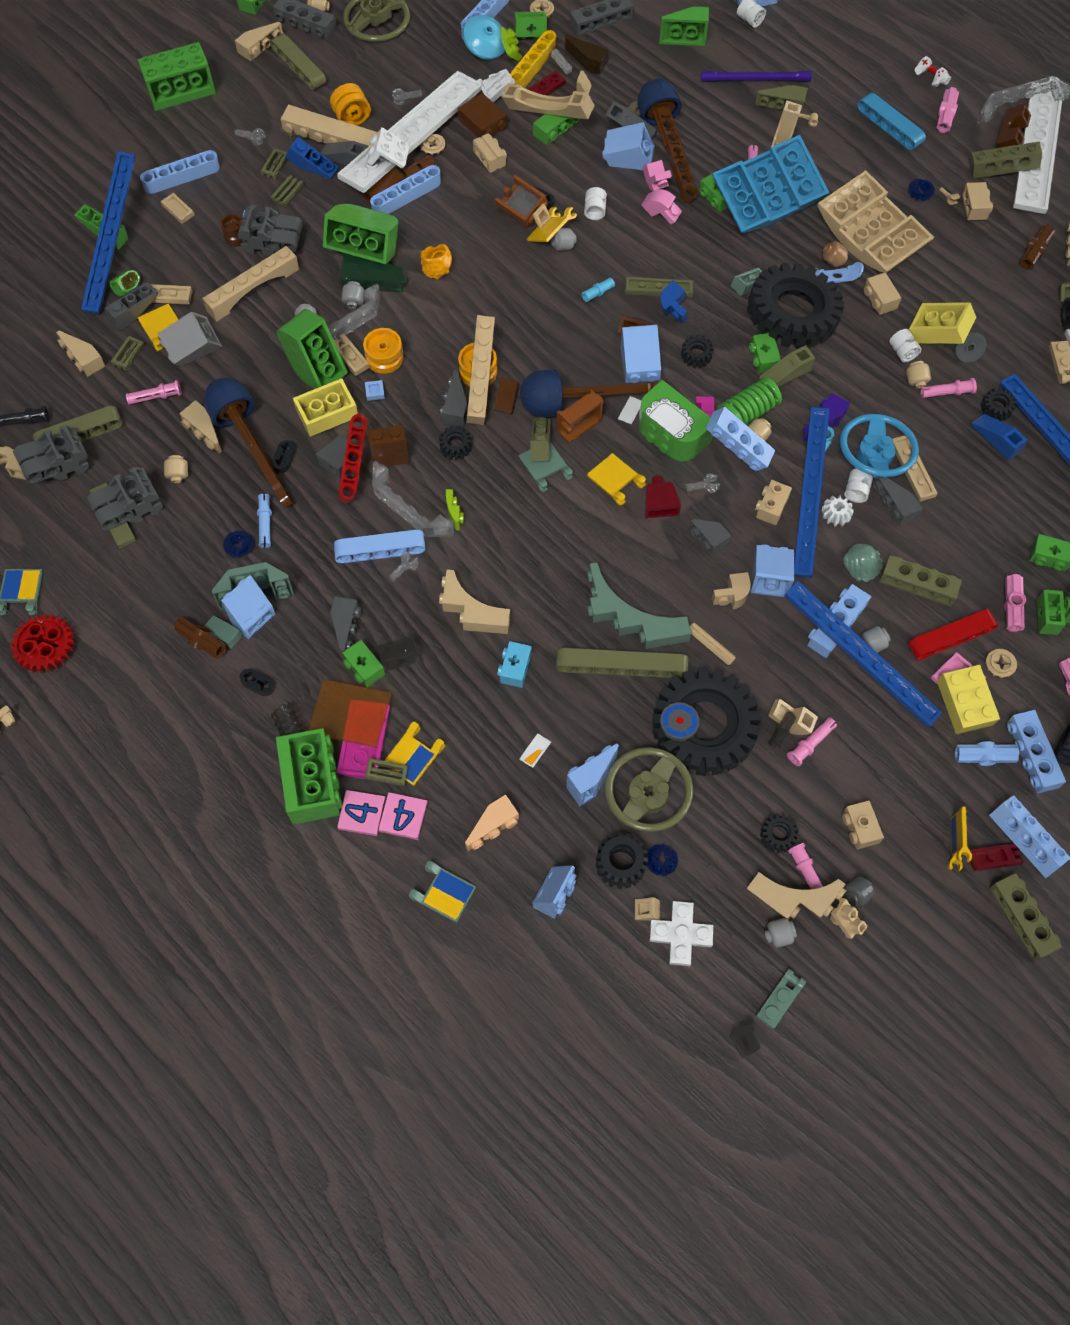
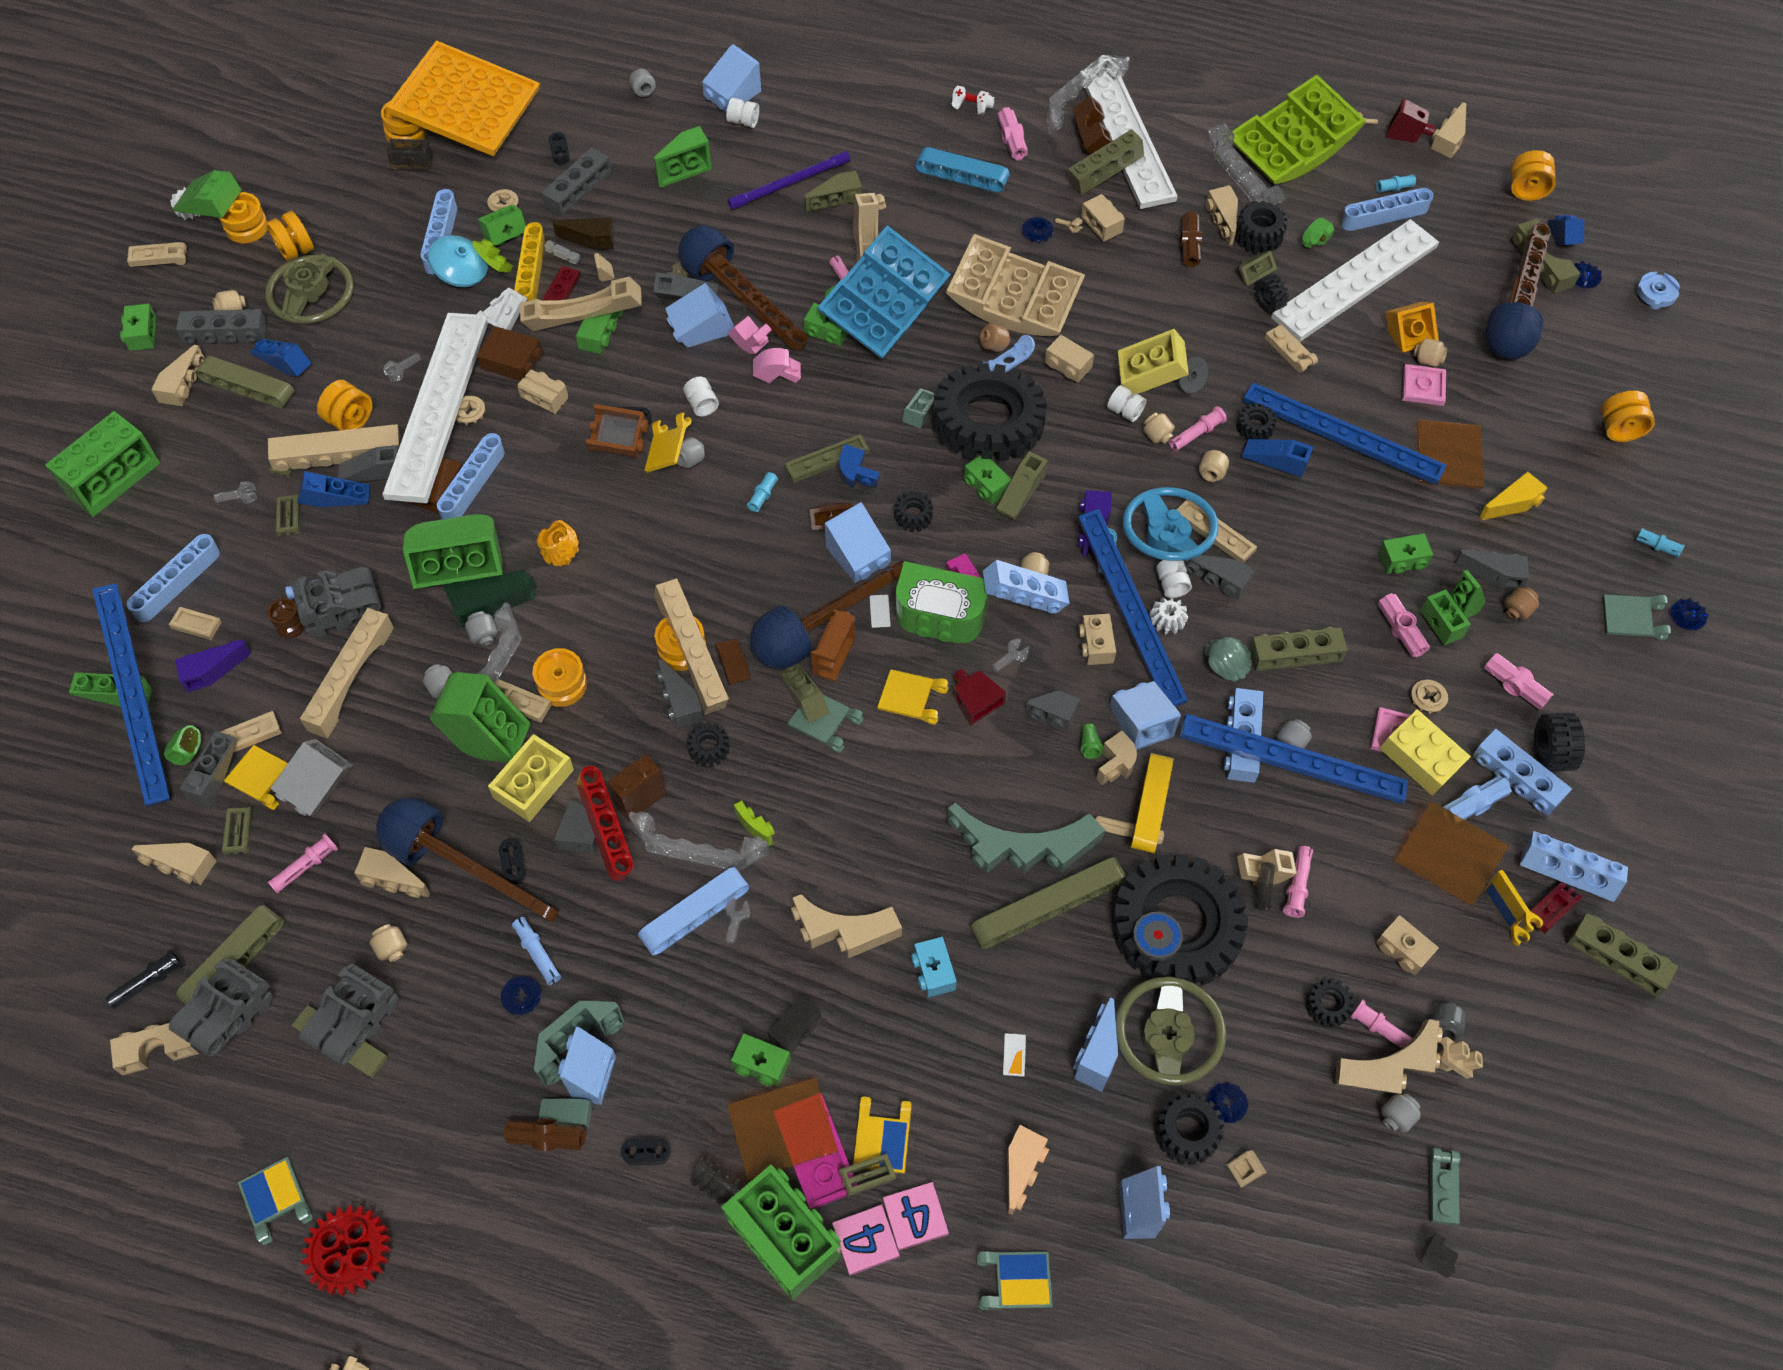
camera: 30 degrees left, 5 degrees down
(169, 239) = (208, 666): none -> dark purple slope
(284, 190) = (316, 537): olive tile -> none
(331, 54) = (282, 356): none -> blue slope
(344, 615) = (704, 1021): dark grey slope -> none
(374, 390) = (575, 729): light blue plate -> none
(389, 147) = (426, 435): white bracket -> none
(418, 166) = (469, 443): reddish brown pin -> none
(541, 215) = (650, 437): tan slope -> none
(681, 933) = (1299, 1174): white plate -> none
(721, 572) = (1091, 744): none -> bright green cone
(738, 632) = (1152, 803): none -> yellow beam
(754, 400) = (1009, 538): bright green piece -> none
(941, 780) = (1452, 853): none -> clear orange piece
(943, 420) = (1213, 465): none -> tan head
(953, 634) = (1365, 690): red beam -> none

